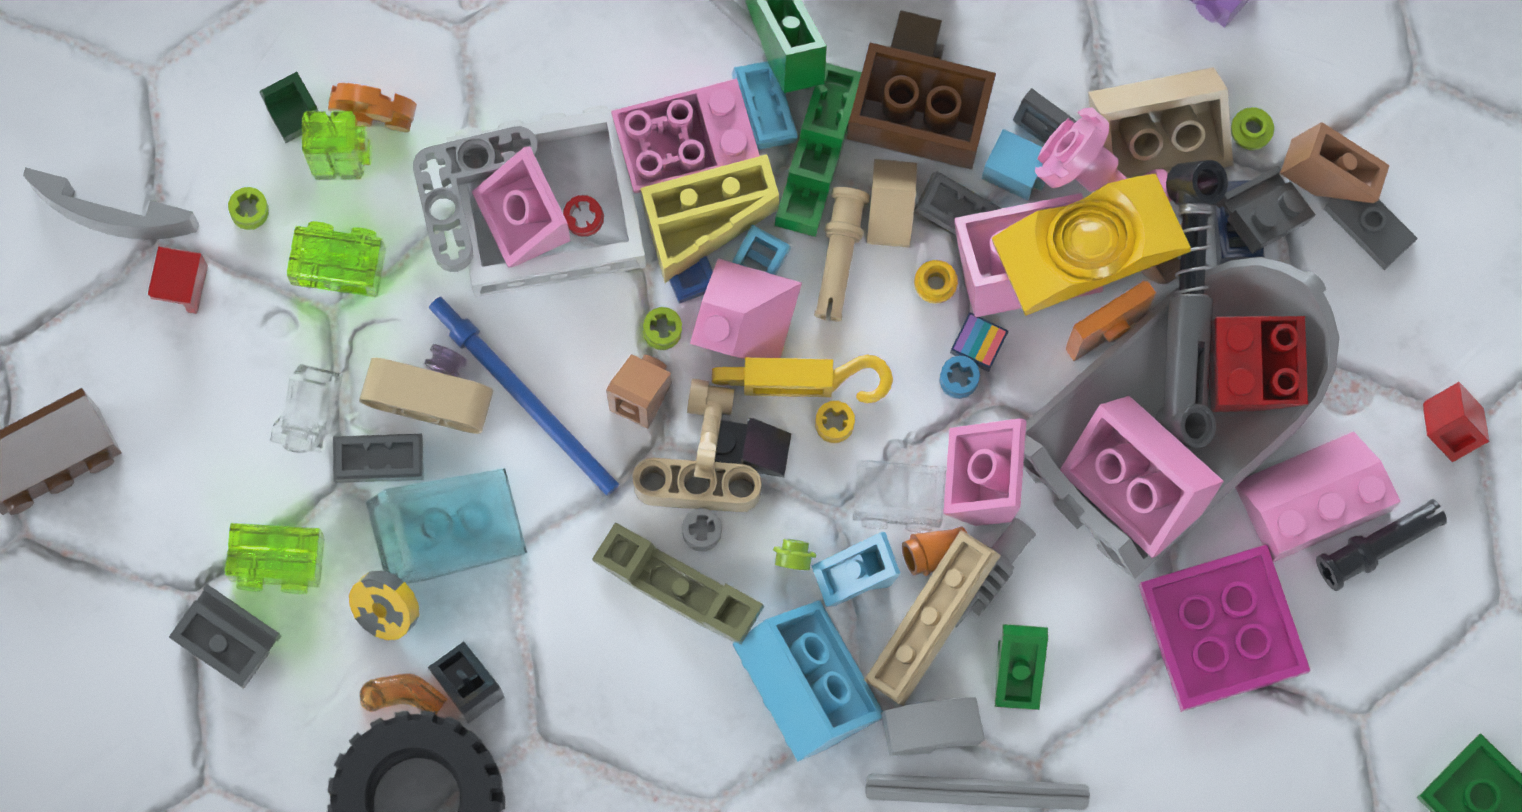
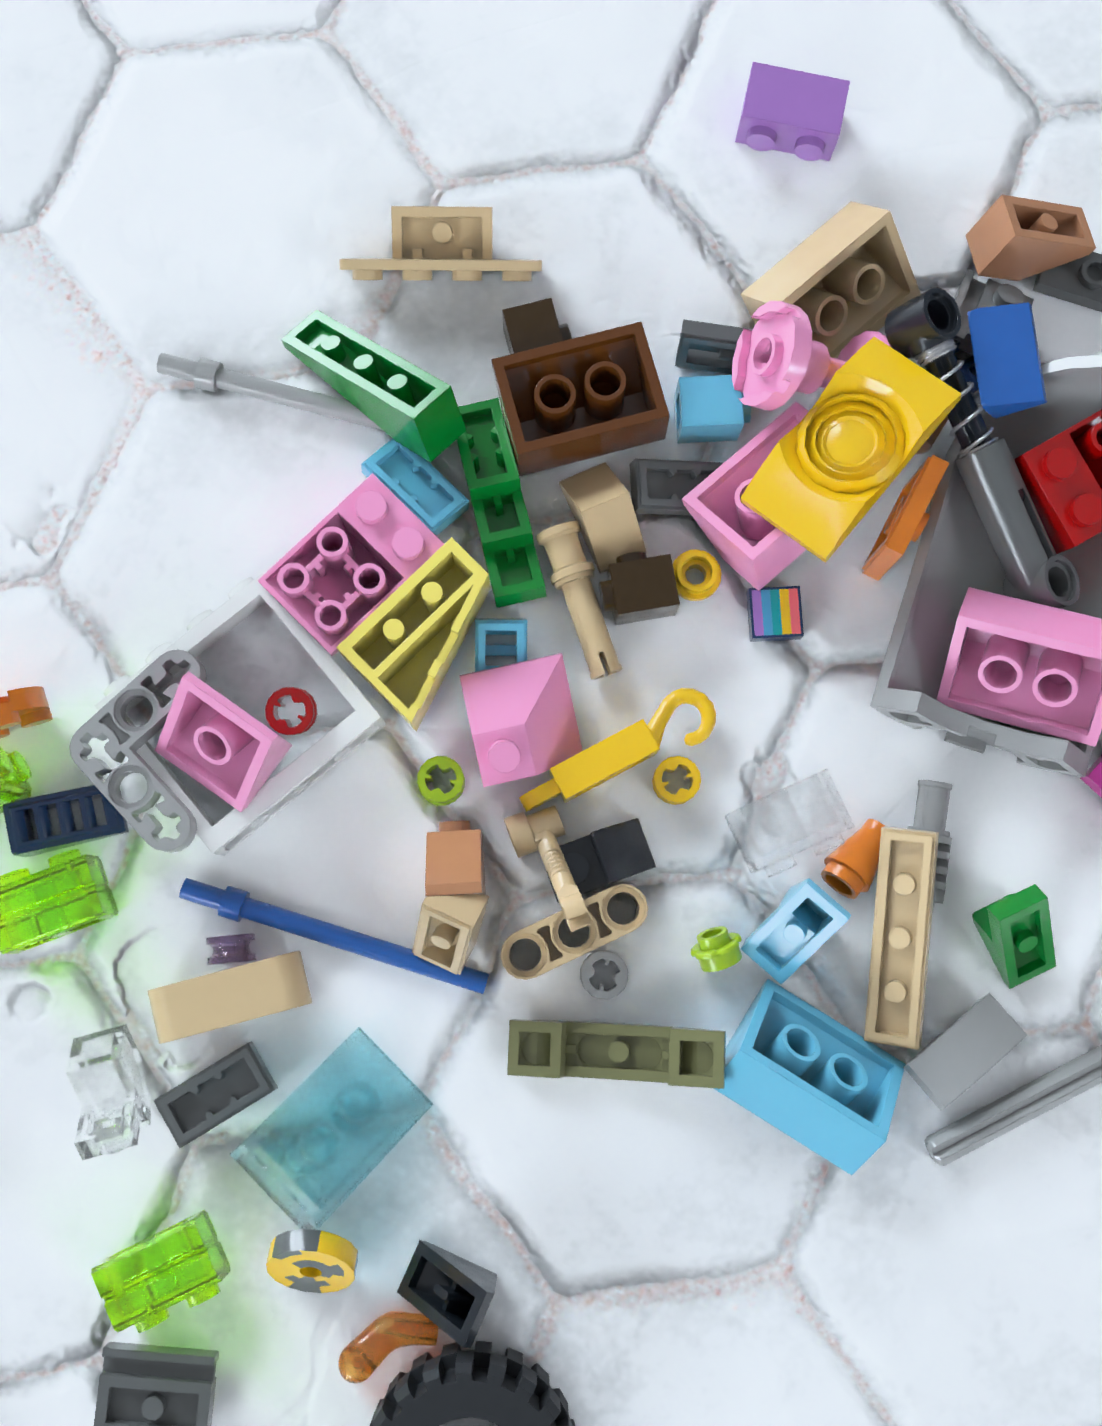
camera: 30 degrees left, 5 degrees up
(366, 189) = (20, 829): none -> dark blue slope
(609, 429) = (449, 929): none -> tan slope
(692, 281) = (445, 712): blue tile -> none
(887, 268) = (640, 588): none -> dark brown brick
(964, 365) = (772, 646): dark azure bush -> none
(985, 472) = (875, 748): bright pink slope -> none
(1244, 241) = (1006, 358): none -> blue slope
(1250, 140) = (920, 258): lime plate -> none

